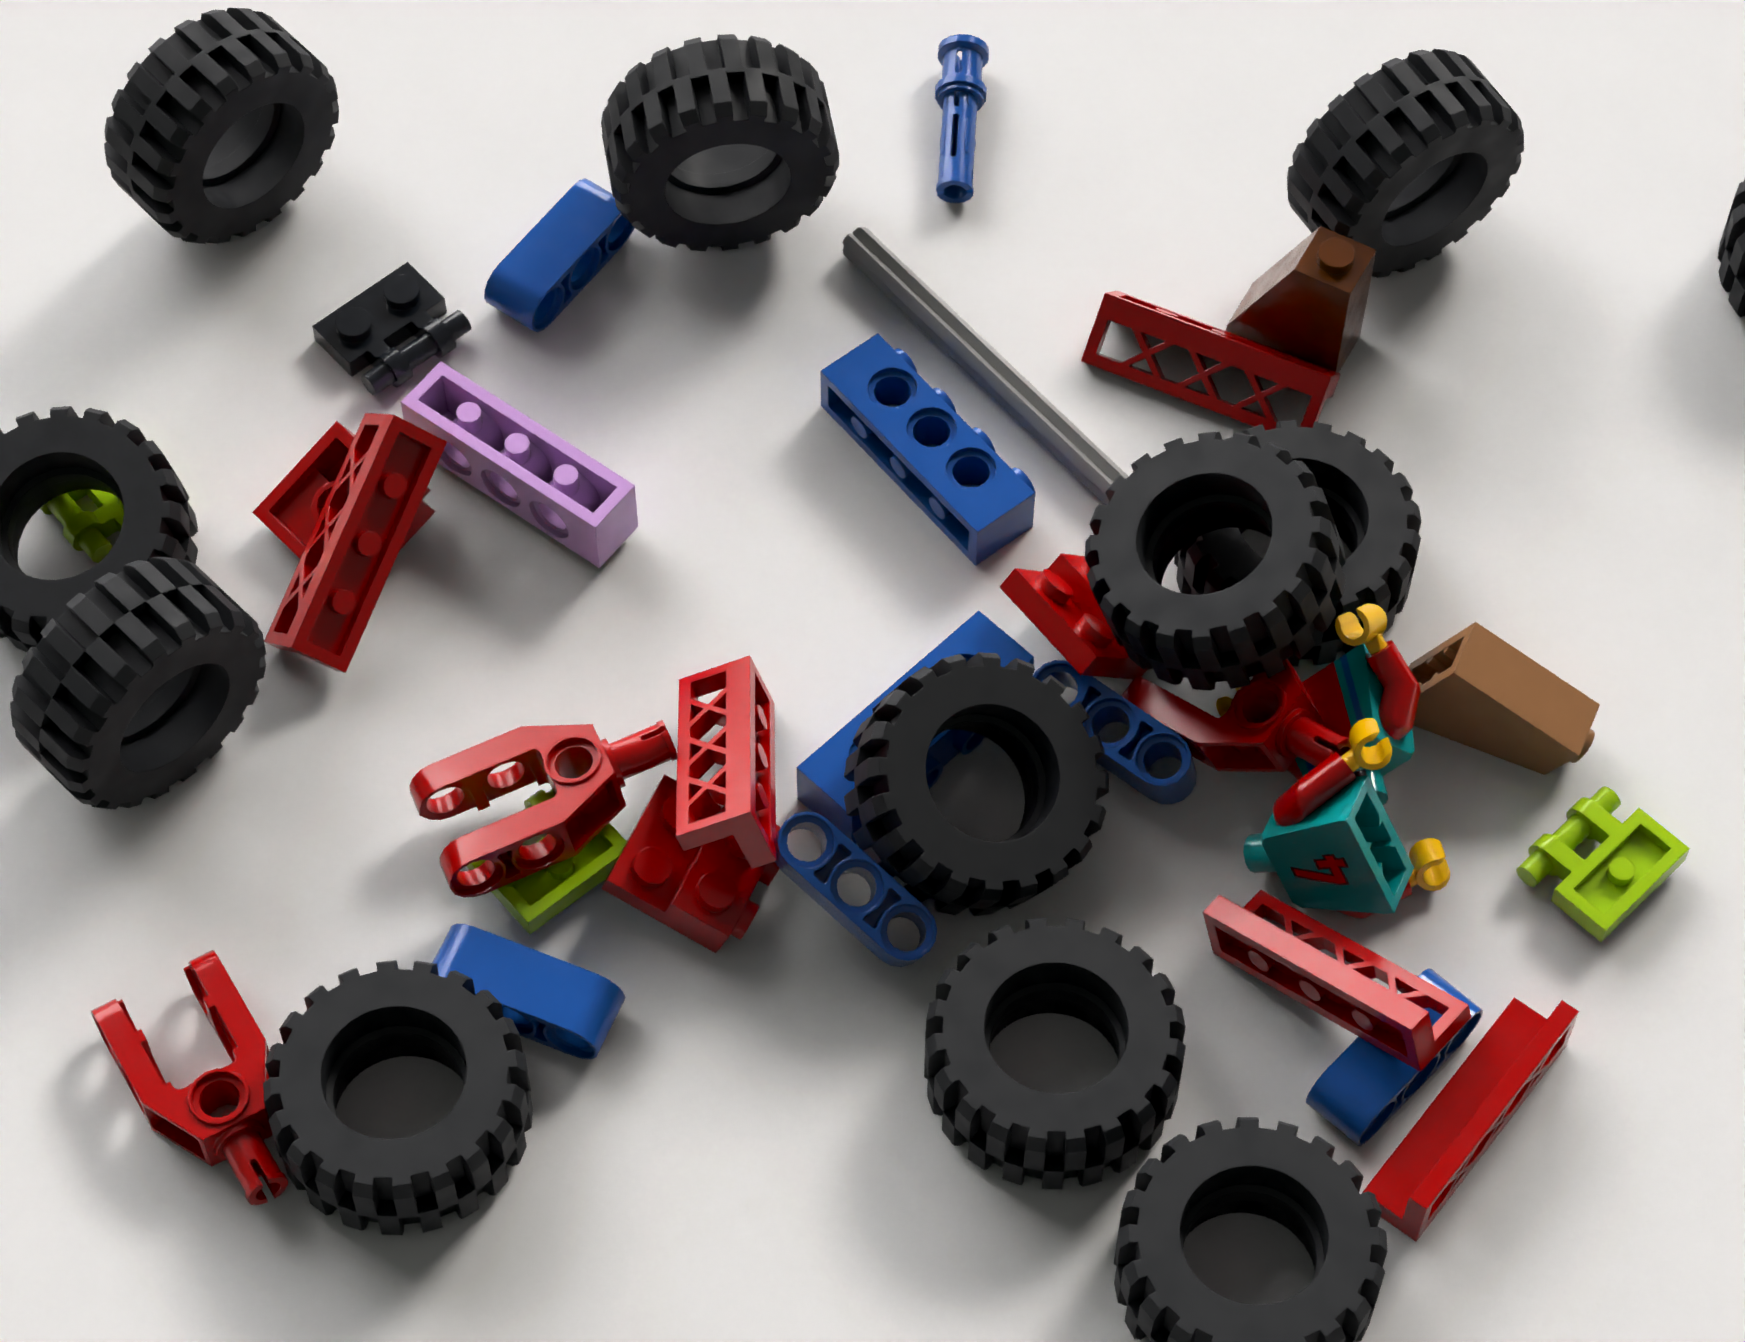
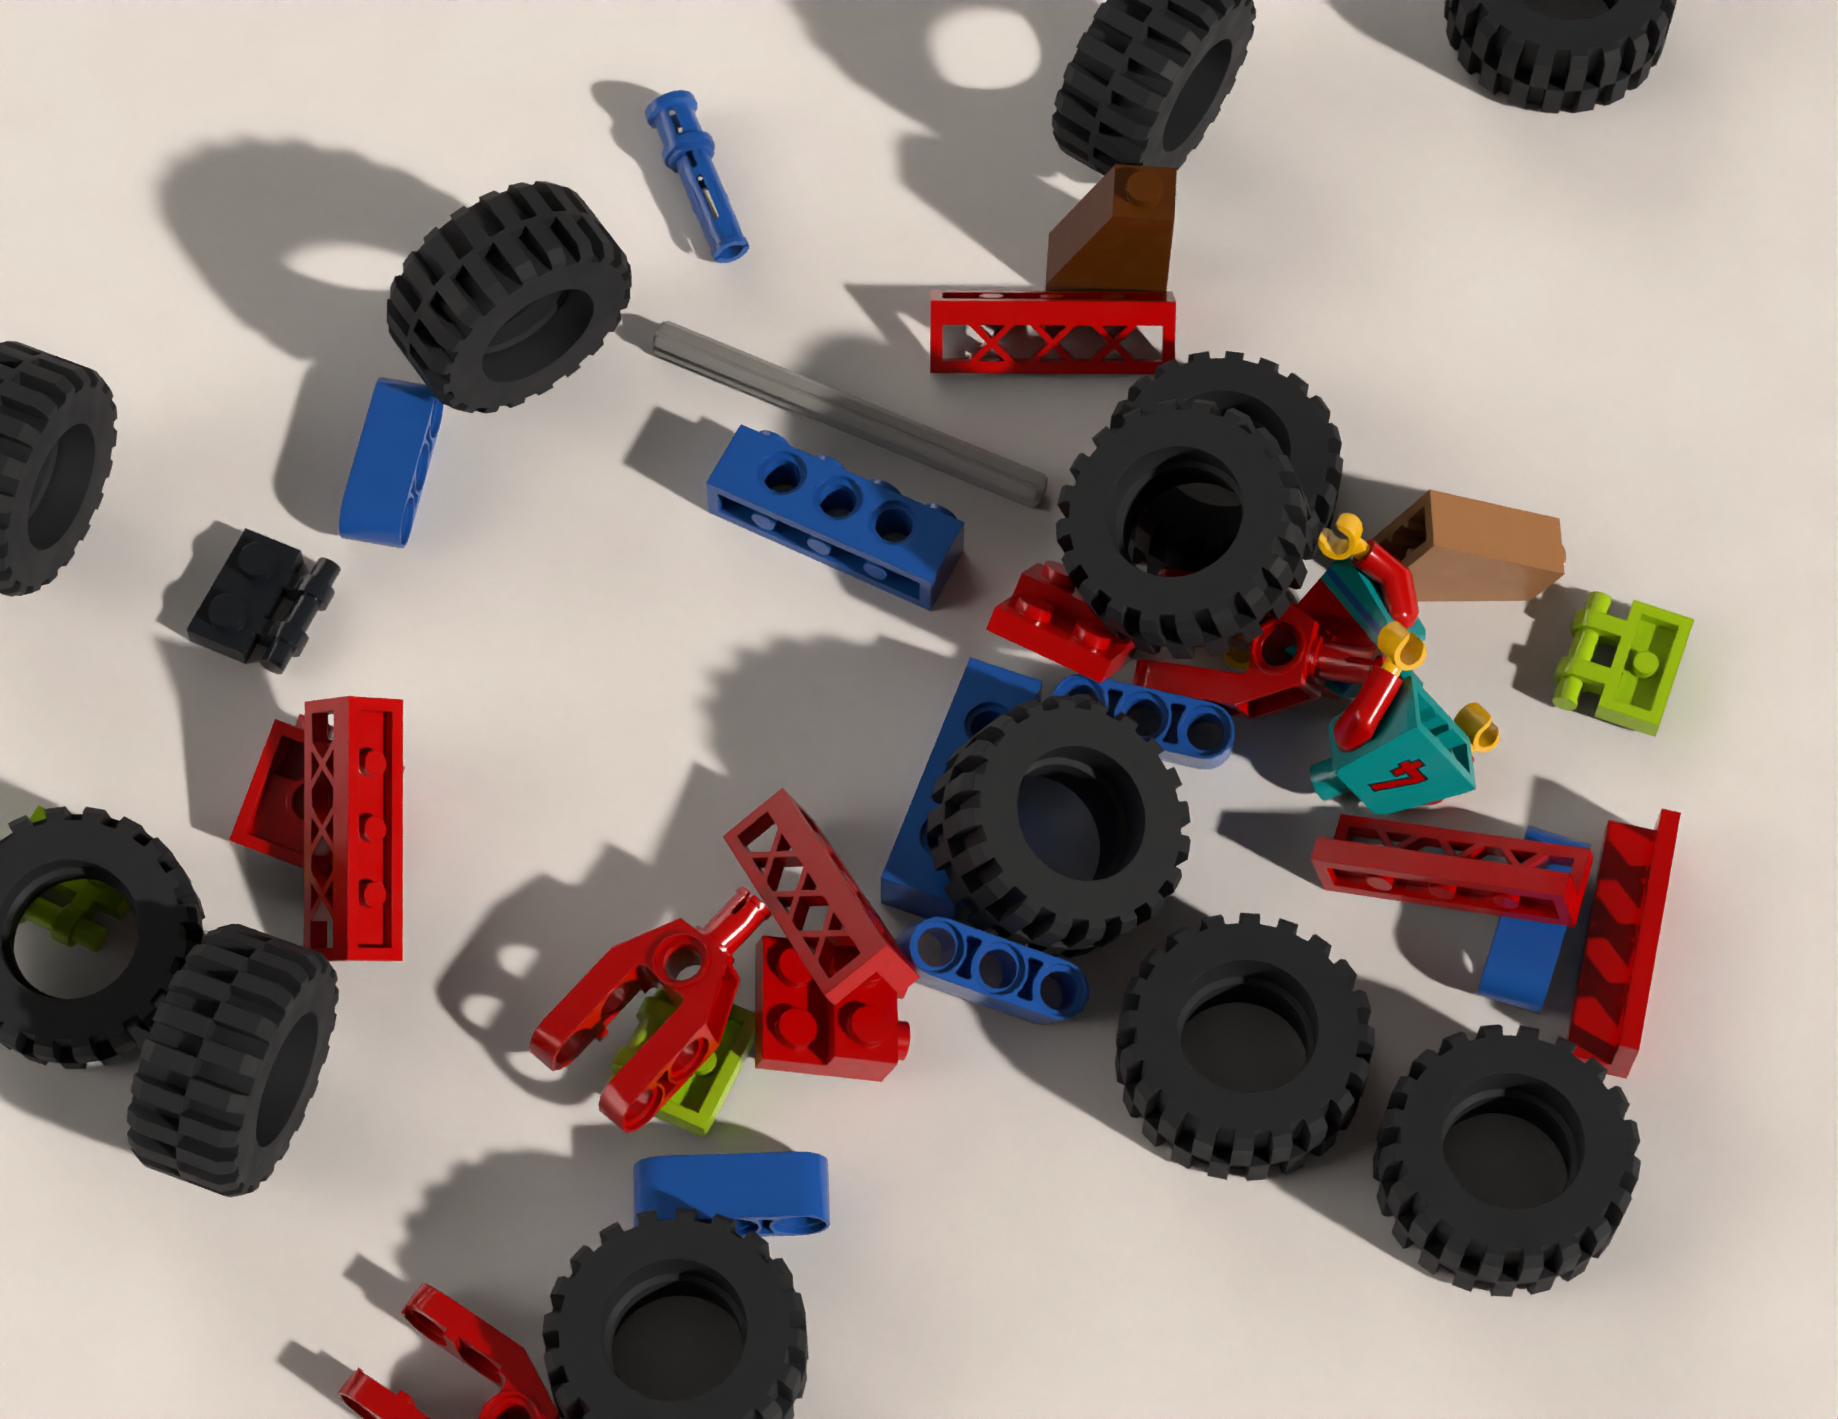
camera: 25 degrees left, 5 degrees up
(524, 465) = (471, 687): lavender brick -> none

